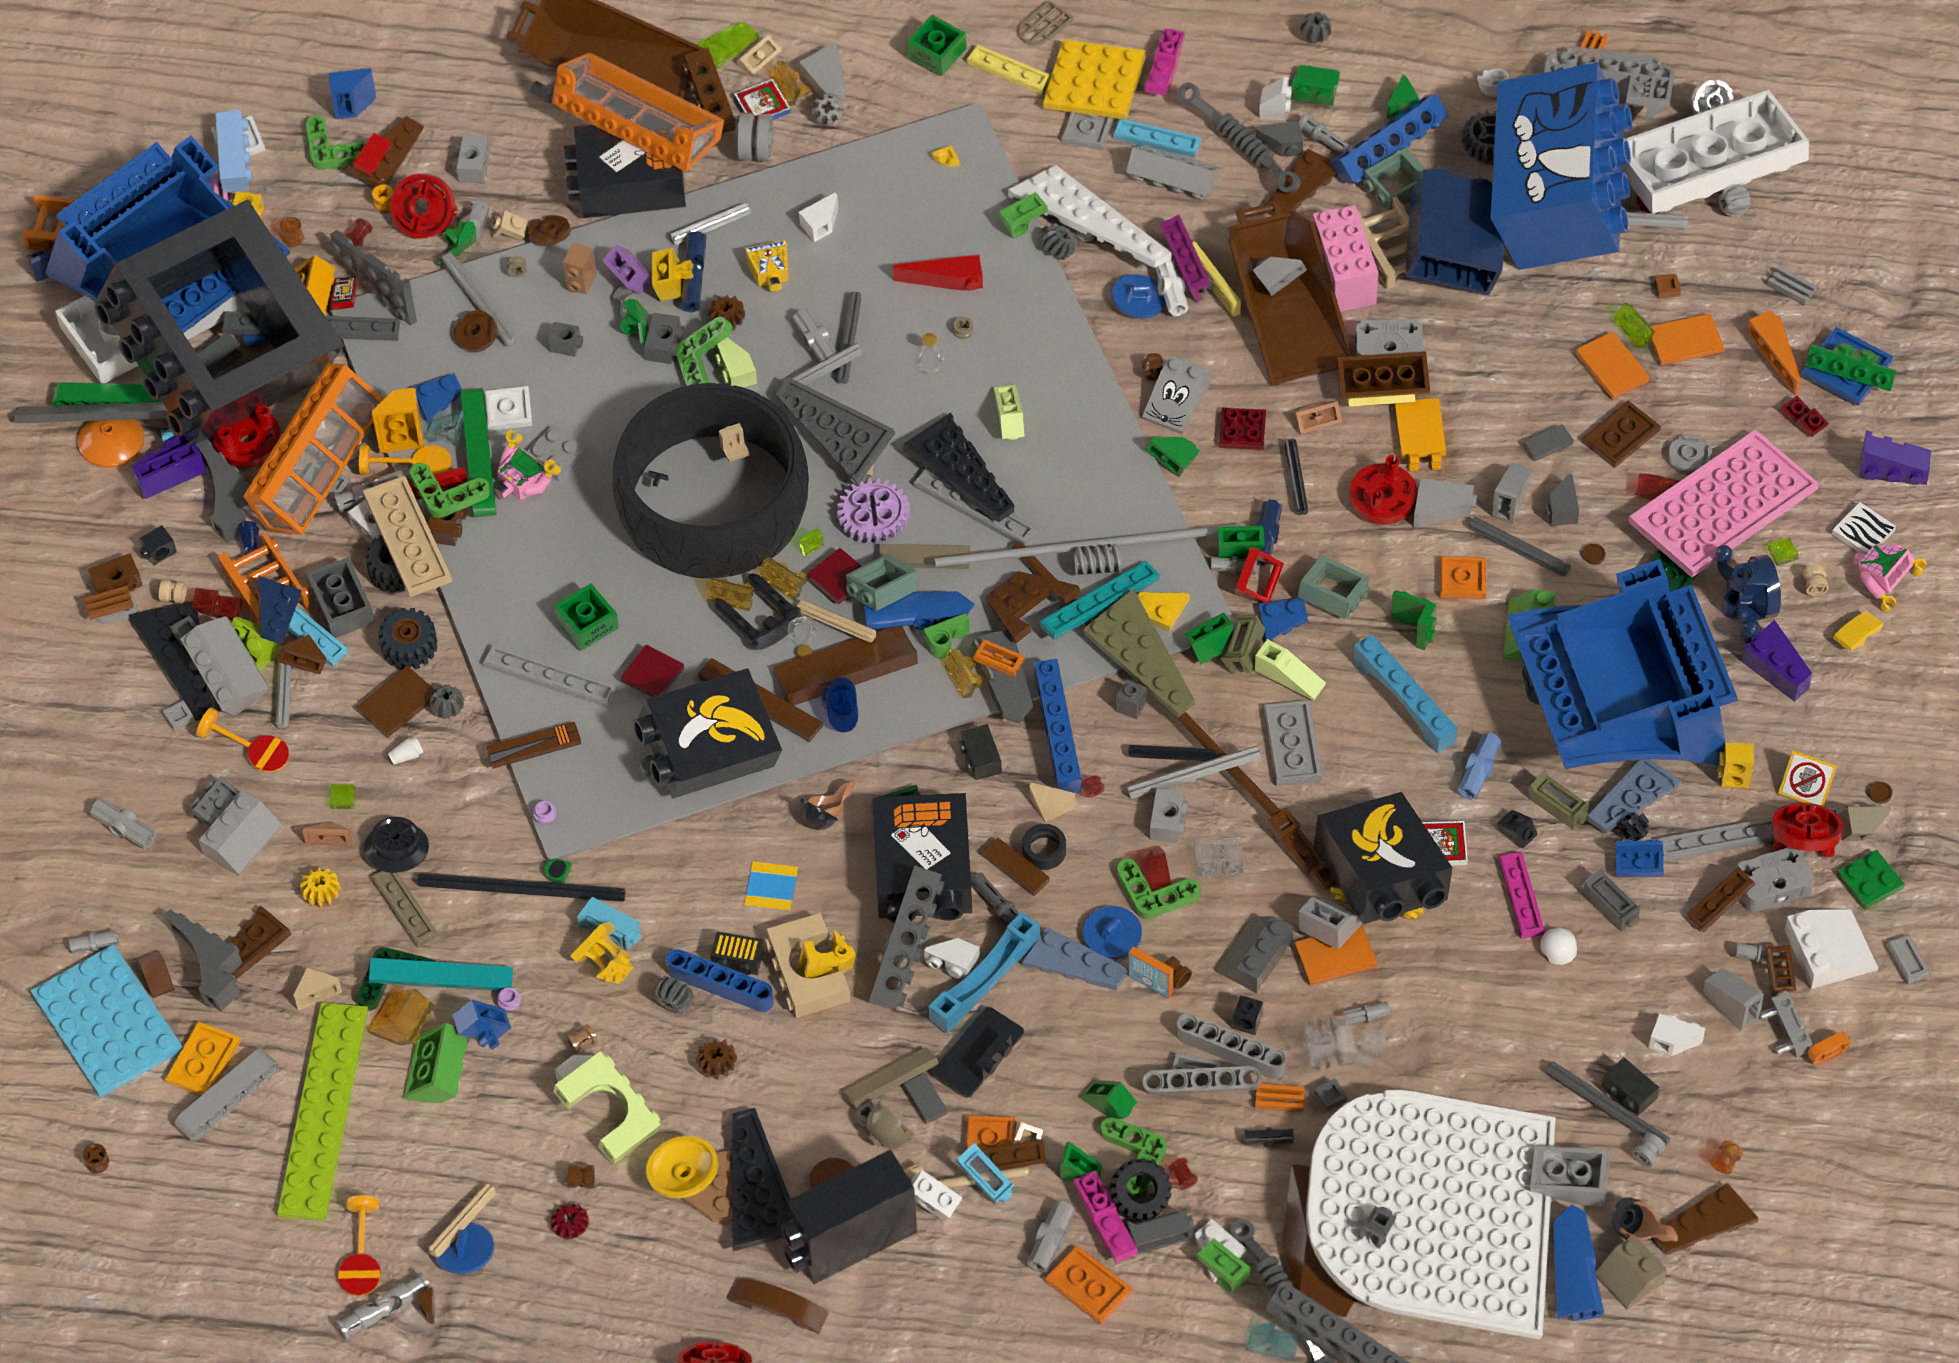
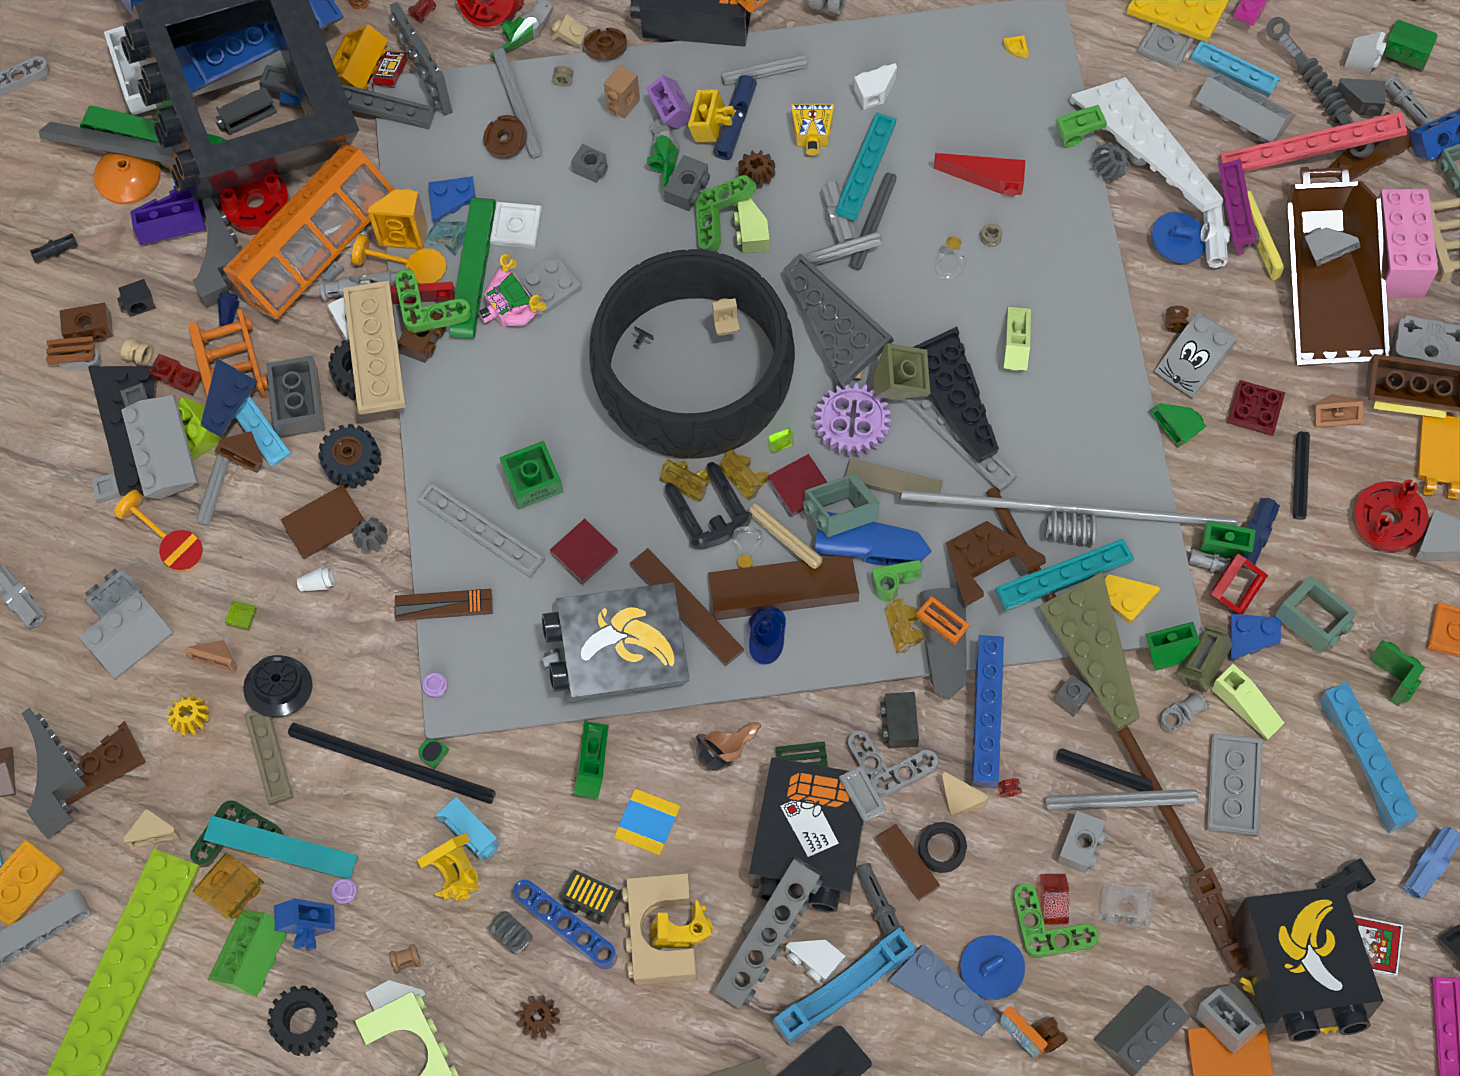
camera: 15 degrees right, 10 degrees up
(60, 518) = (54, 248): none -> black pin
(503, 1089) = (288, 1006): none -> black tyre
(707, 845) = (591, 760): none -> green slope
(830, 289) = (866, 166): none -> teal tile
(909, 459) = (902, 373): none -> olive slope
(962, 808) = (862, 793): none -> light grey tile
(976, 799) = (882, 772): none -> light grey beam
(1234, 692) = (1184, 711): none -> light grey connector
(1248, 186) = (1318, 142): none -> coral tile
(1416, 790) = (1353, 877): none -> black piece

